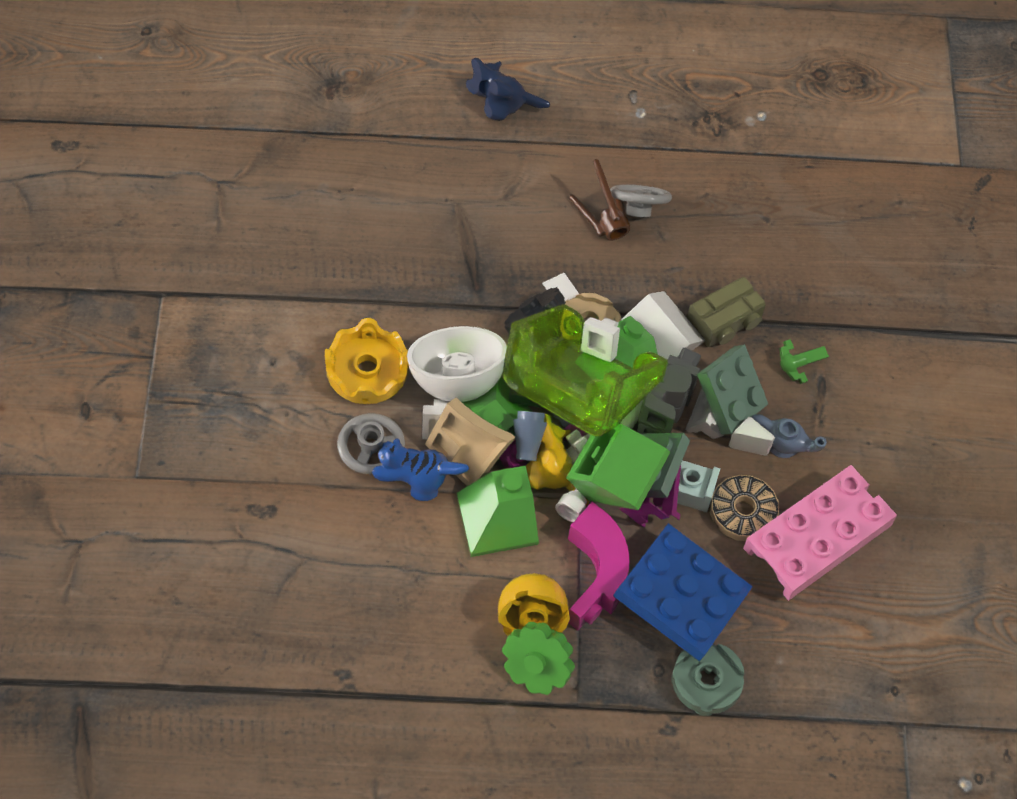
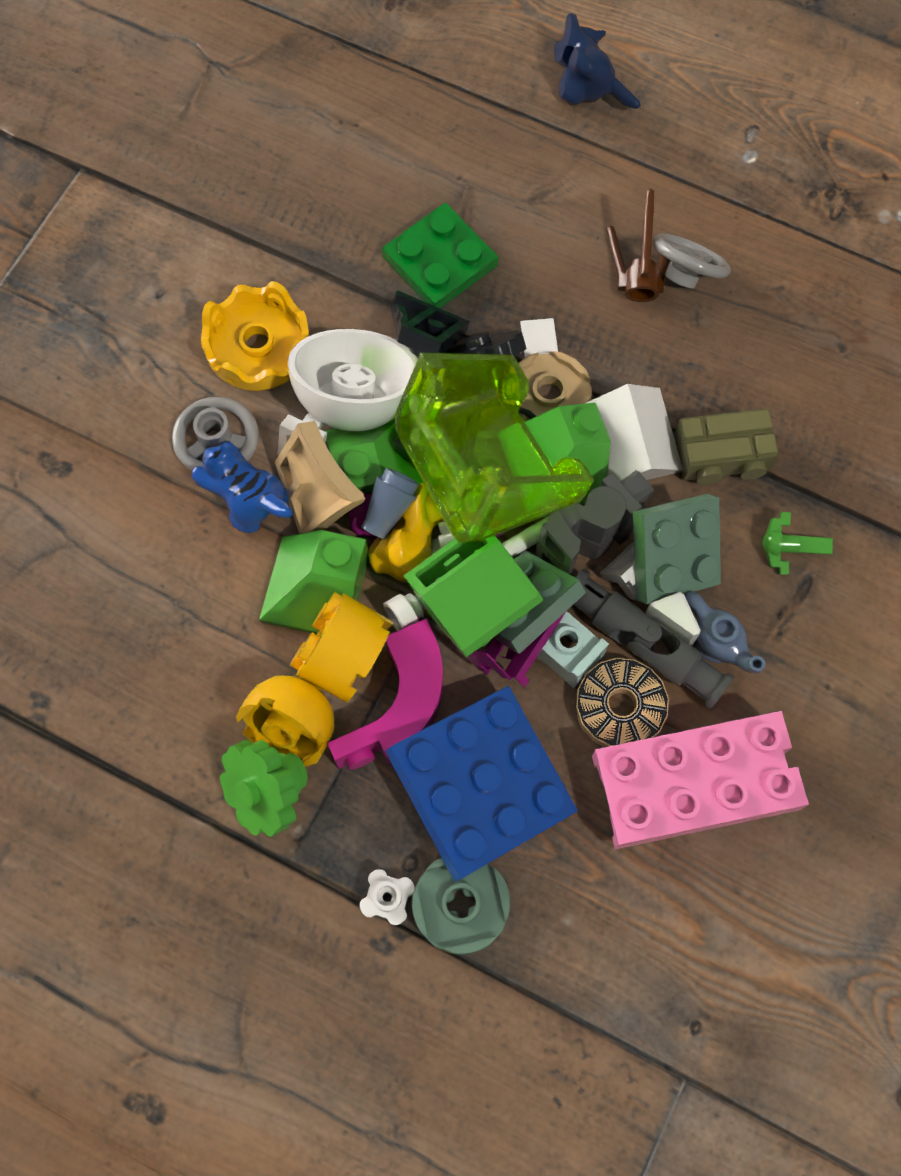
camera: 30 degrees right, 10 degrees up
(464, 259) = (440, 256): none -> green plate
(482, 310) = (425, 326): none -> black wing
(547, 541) = (344, 646): none -> yellow brick
(600, 338) = (533, 416): white tile -> none
(657, 705) = (381, 884): none -> white plate
(733, 456) = (632, 628): none -> dark grey piece

